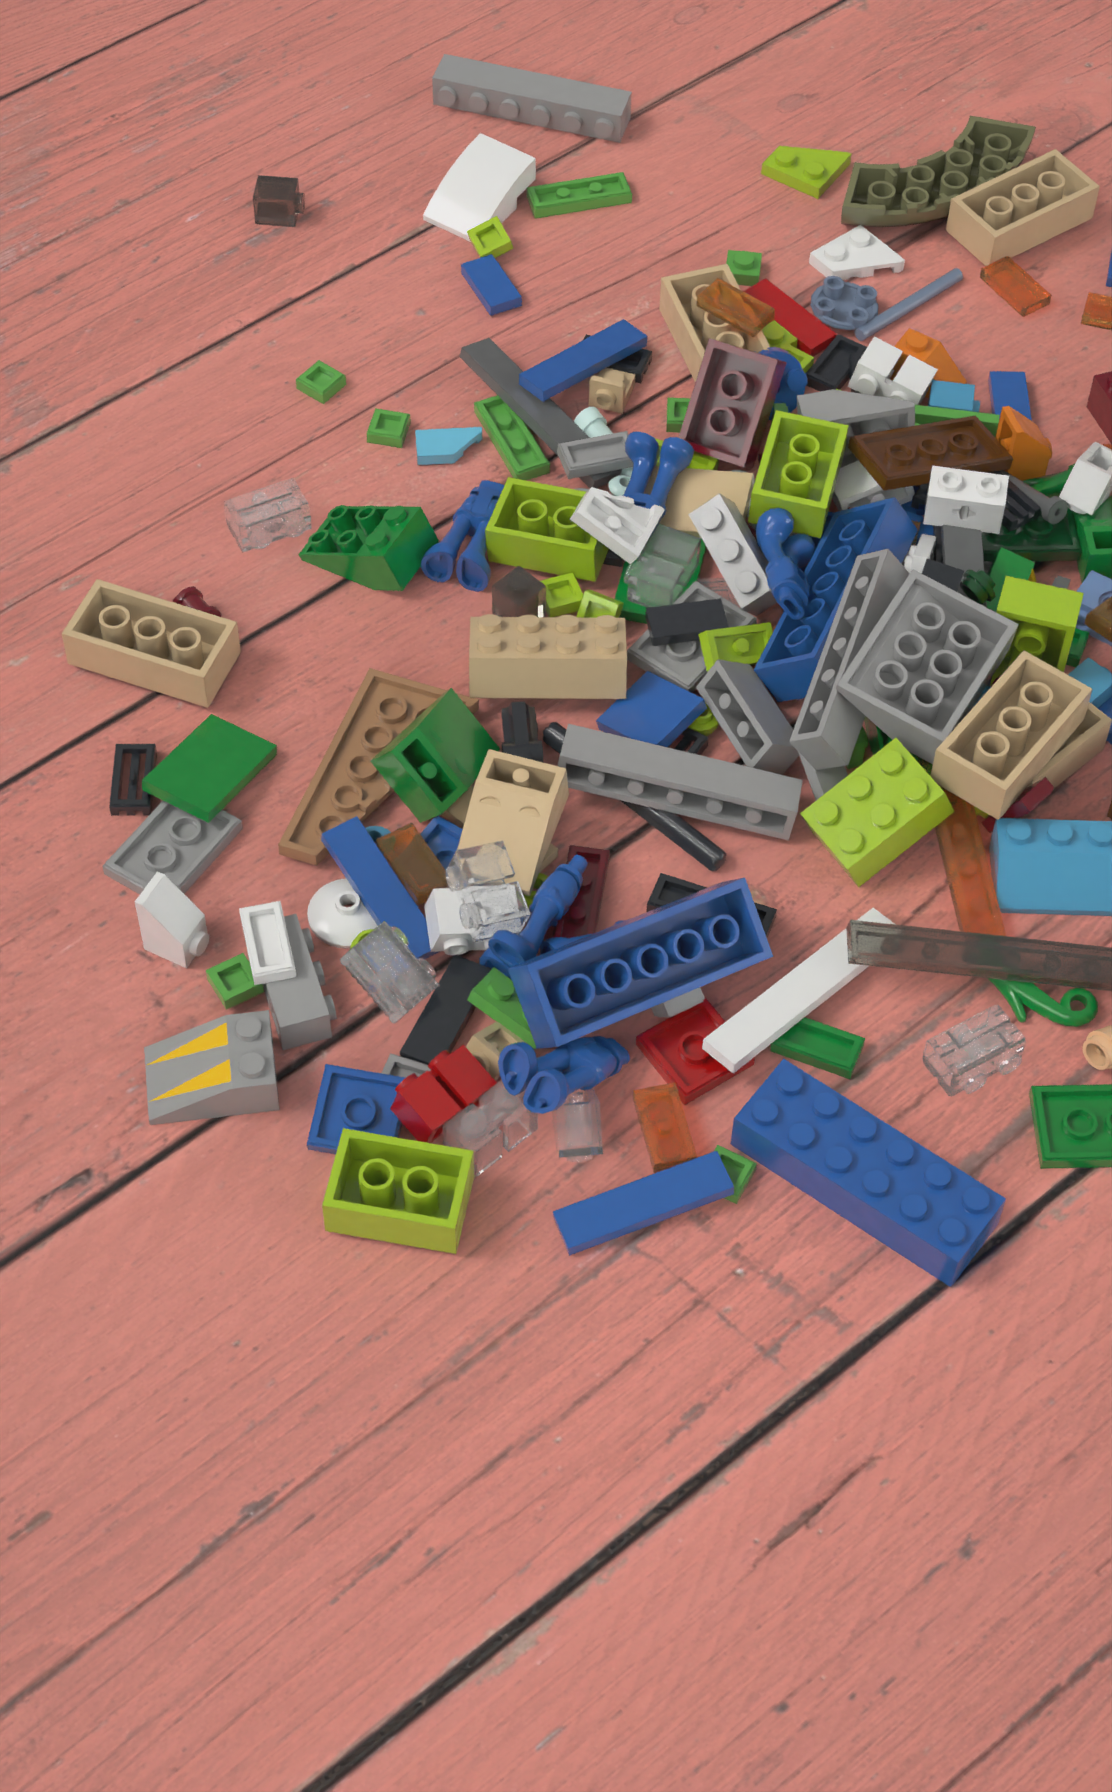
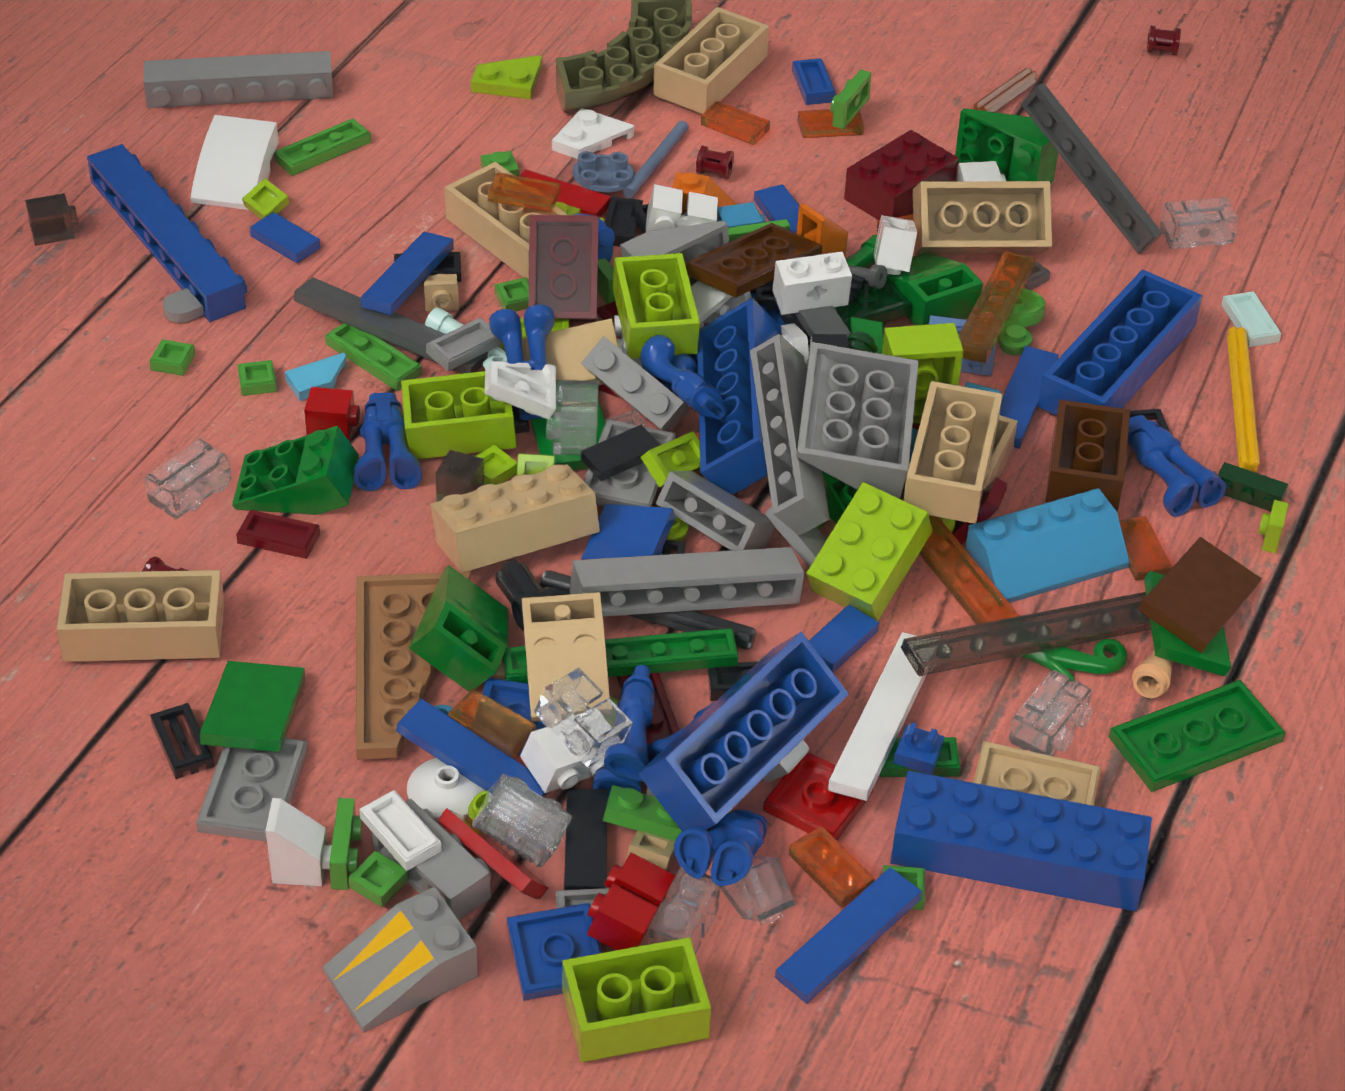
camera: 25 degrees left, 10 degrees down
(219, 934) = (343, 857): none -> bright green plate
(325, 598) = (278, 534): none -> dark red tile
(349, 998) = (493, 854): none -> red tile
(355, 330) = (182, 307): none -> light grey tile
(379, 247) = (167, 232): none -> blue brick
(434, 488) = (331, 408): none -> red brick
(615, 846) = (657, 652): none -> green tile
(809, 892) = (844, 636): none -> blue tile
(816, 1038) = (919, 749): none -> blue tile
(924, 1111) = (1036, 773): none -> tan tile
(977, 327) = (707, 158): none -> dark red bush

